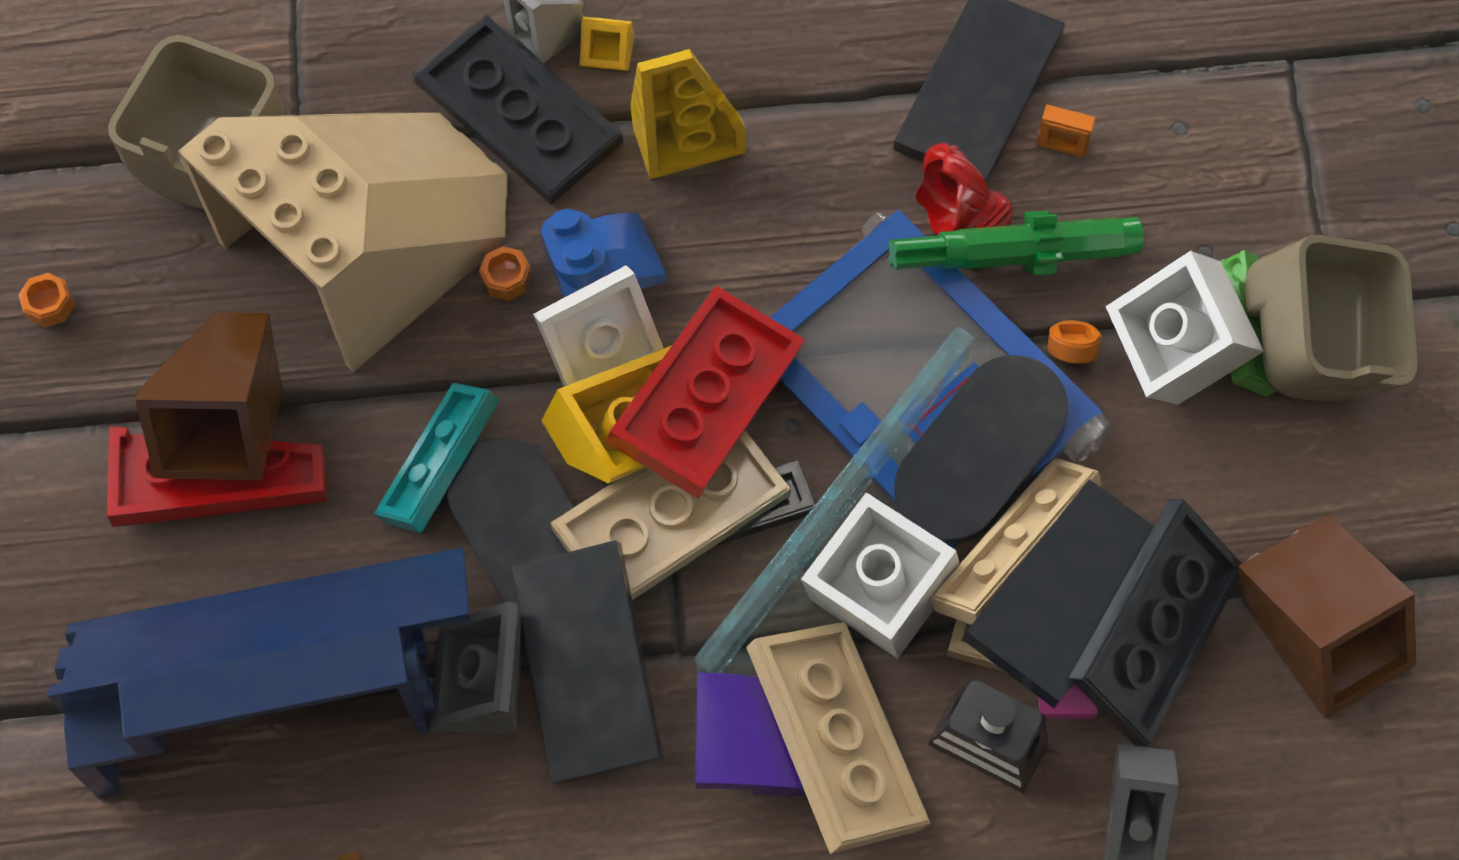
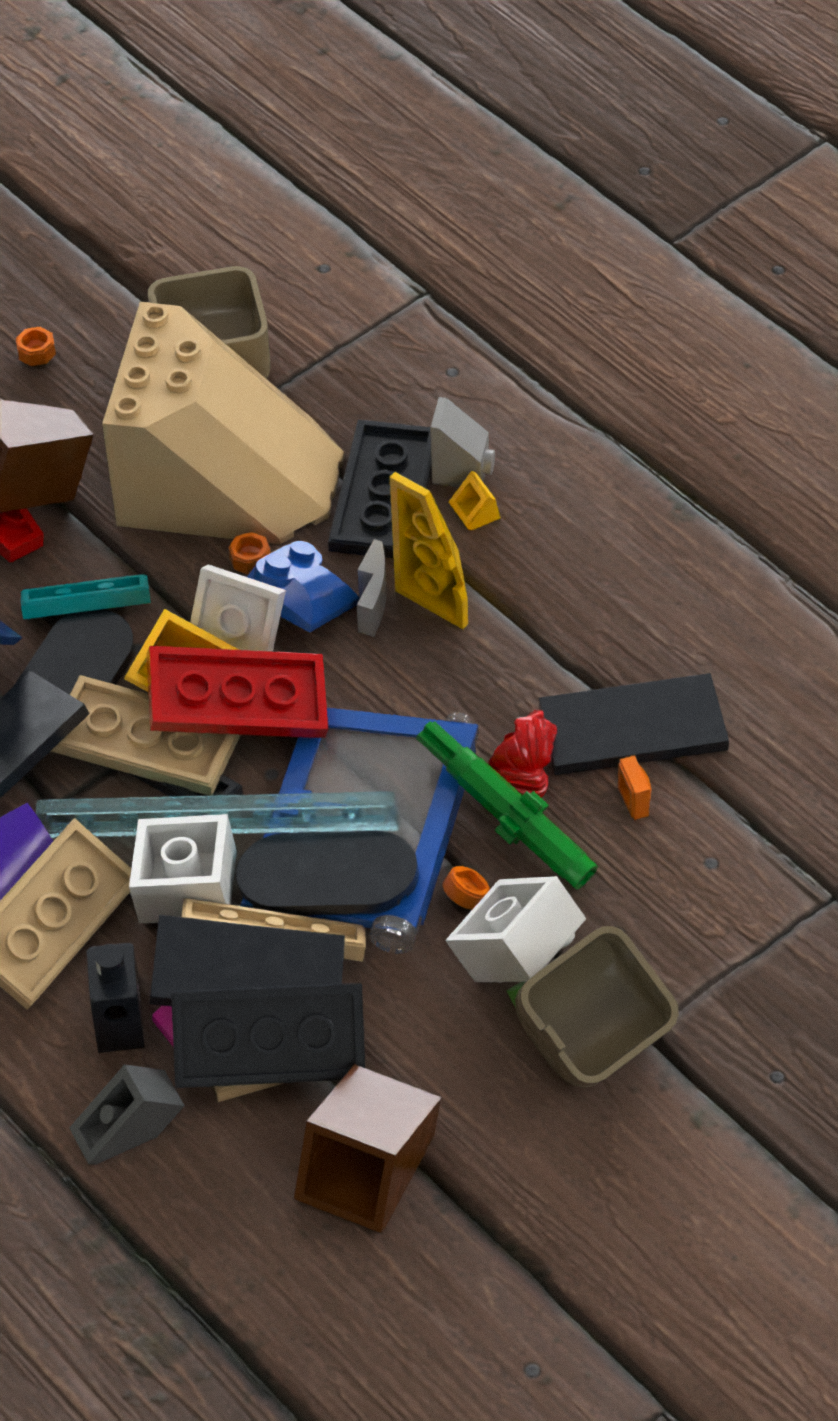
camera: 55 degrees right, 15 degrees down
(642, 186) = (371, 589): none -> light grey slope

